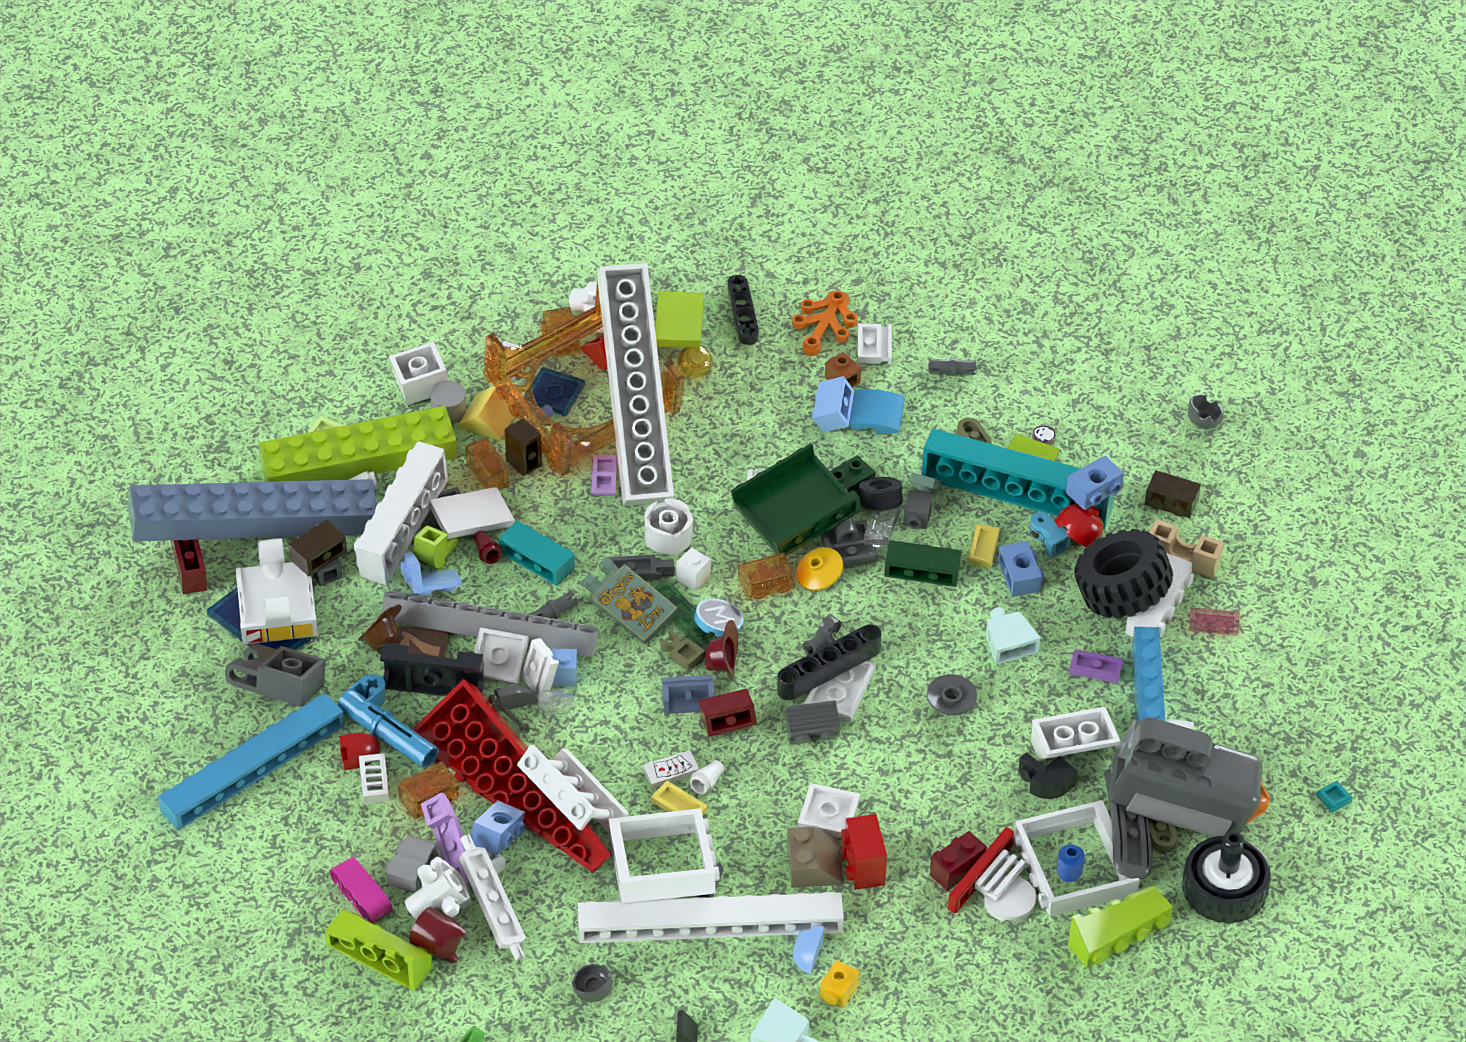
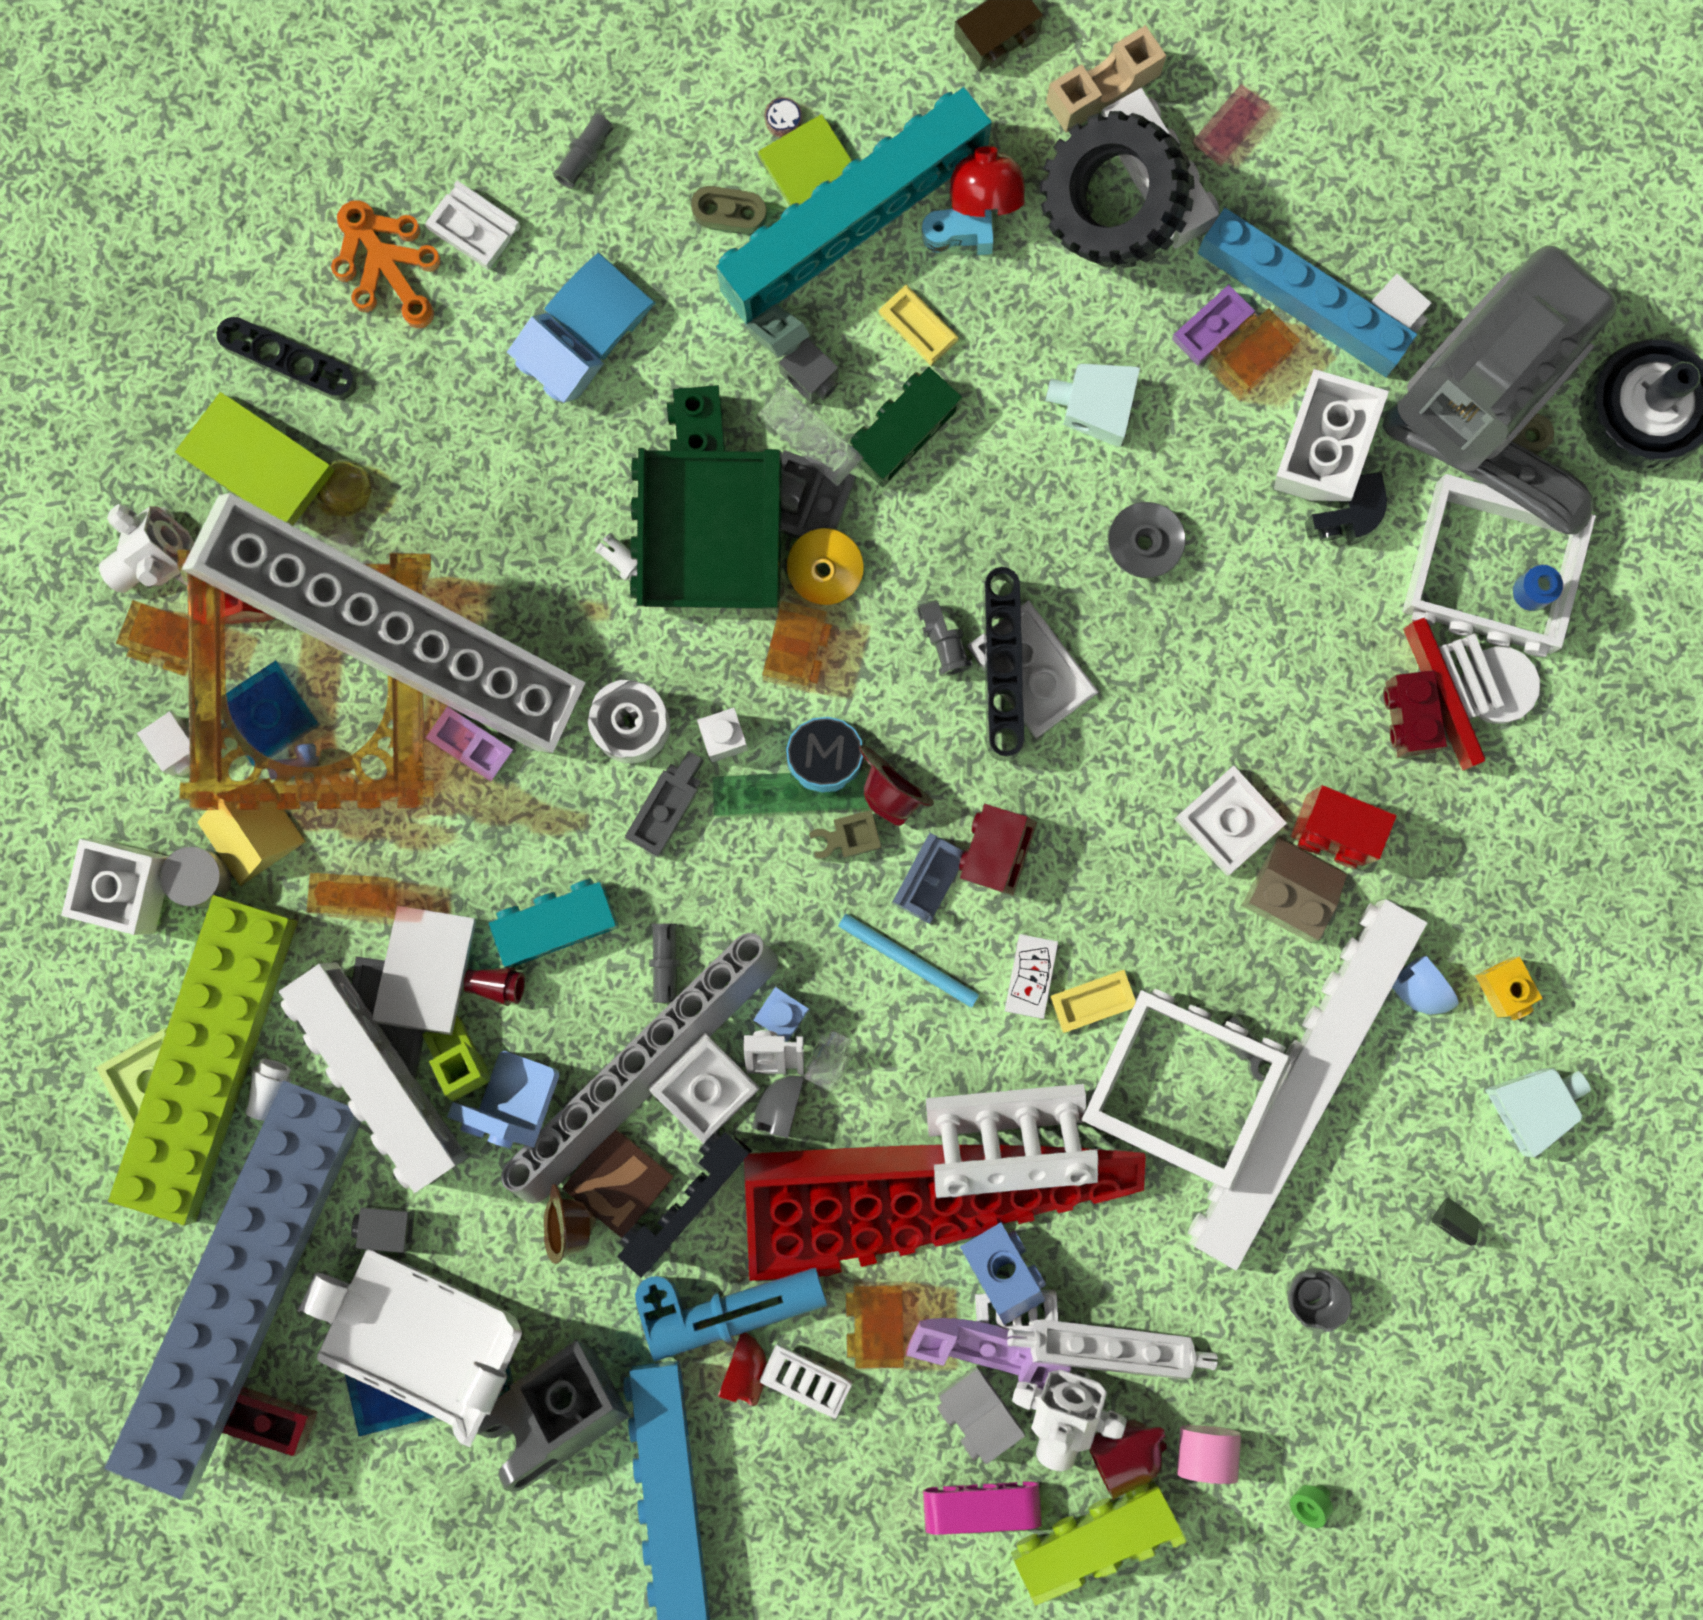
camera: 55 degrees left, 35 degrees up
(317, 547) = (368, 1238): dark brown brick -> none
(467, 972) = (1209, 1454): none -> bright pink piece
(523, 446) = (357, 830): dark brown brick -> none
(524, 728) = (838, 1124): clear smoke hinge -> none
(630, 601) = (724, 854): sand green tile -> none
(637, 731) = (908, 960): none -> medium azure bar
(706, 777) = (1078, 941): white cone -> none
(812, 721) = (1080, 748): dark grey brick -> none
(842, 366) = (498, 304): dark orange brick -> none
(880, 493) = (743, 388): black tyre -> none
(1020, 568) = (1007, 326): medium blue brick -> none
(1094, 482) = (969, 100): medium blue brick -> none
(1095, 689) = (1252, 354): none -> clear orange brick
(1118, 925) = (1635, 583): lime wedge -> none
(1334, 796) = (1592, 180): teal tile -> none

